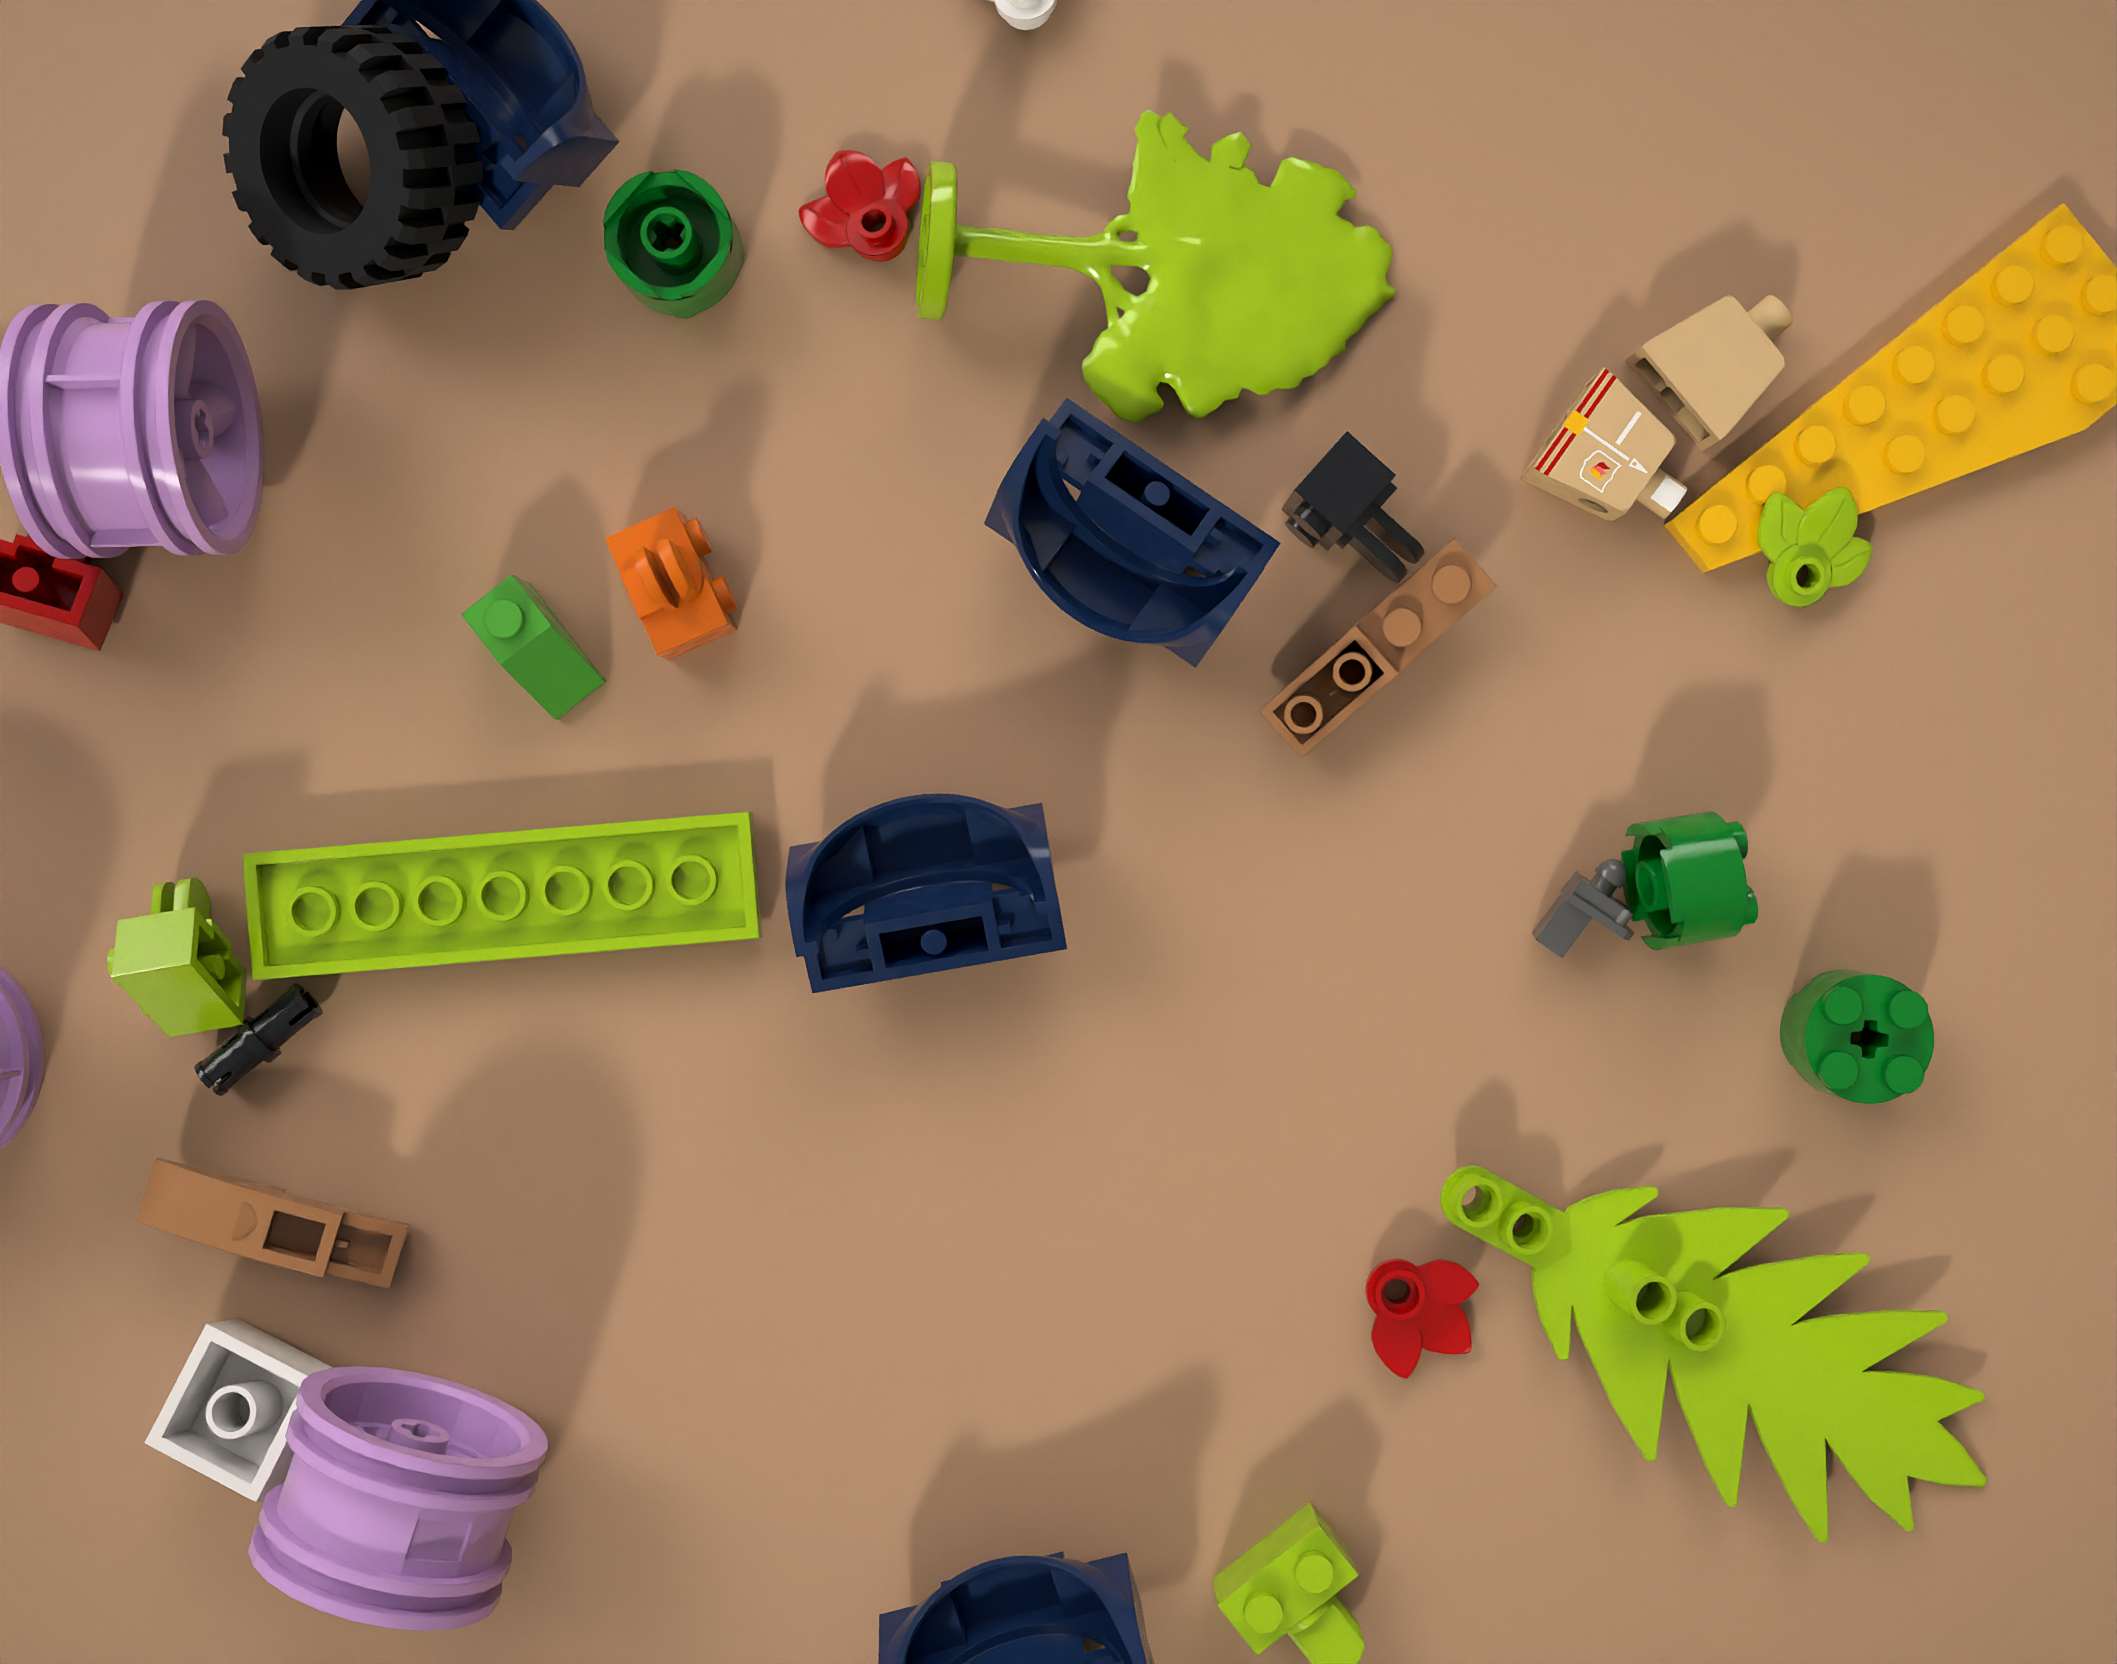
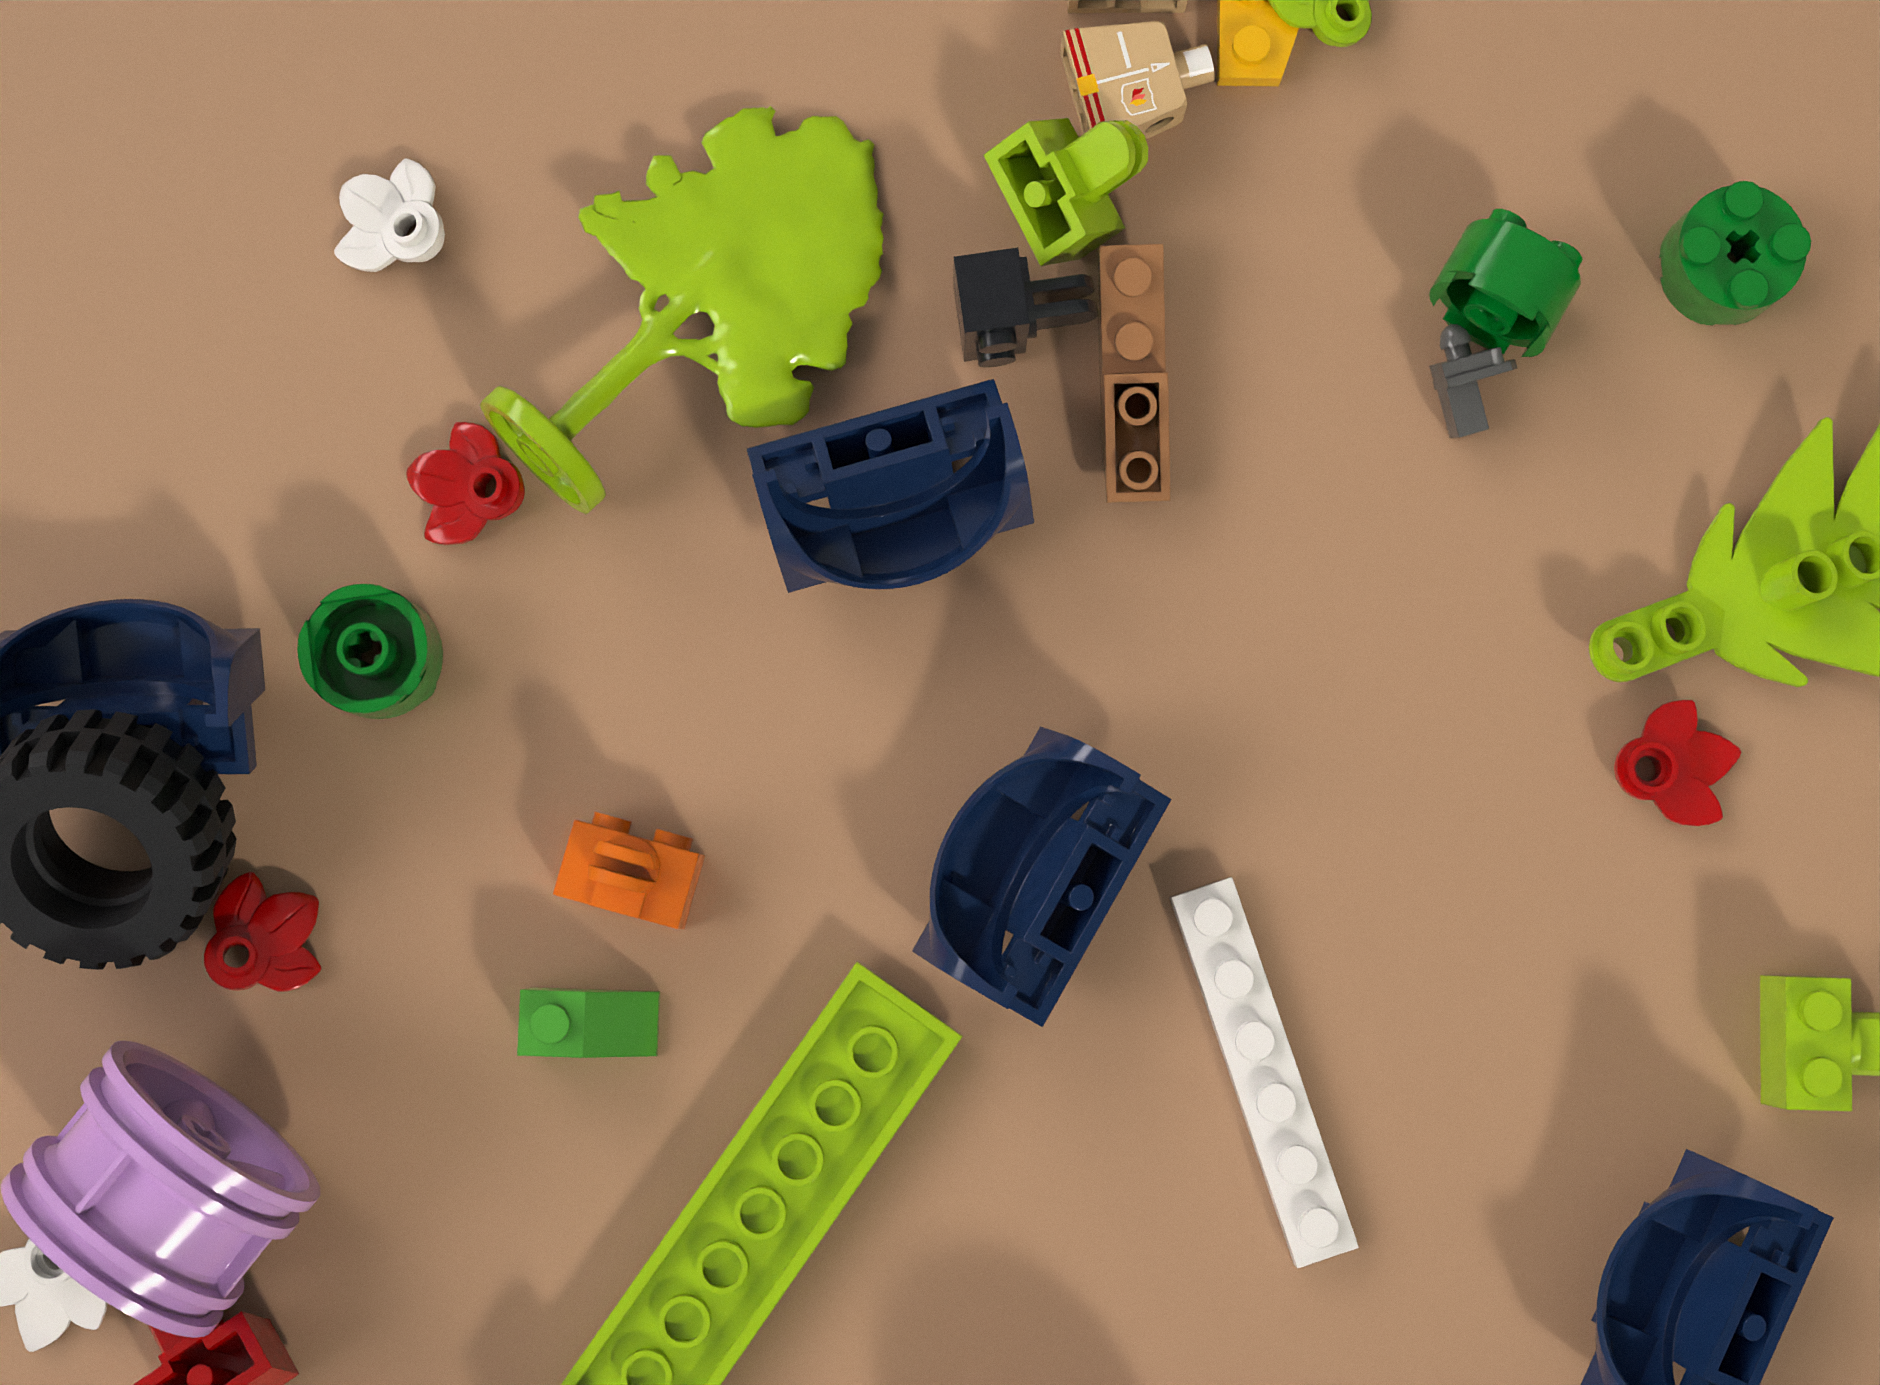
camera: 45 degrees left, 5 degrees down
(403, 347) = (270, 931): none -> red plate
(924, 1186) = (1264, 1073): none -> white plate
(1482, 467) = (1064, 180): none -> lime brick

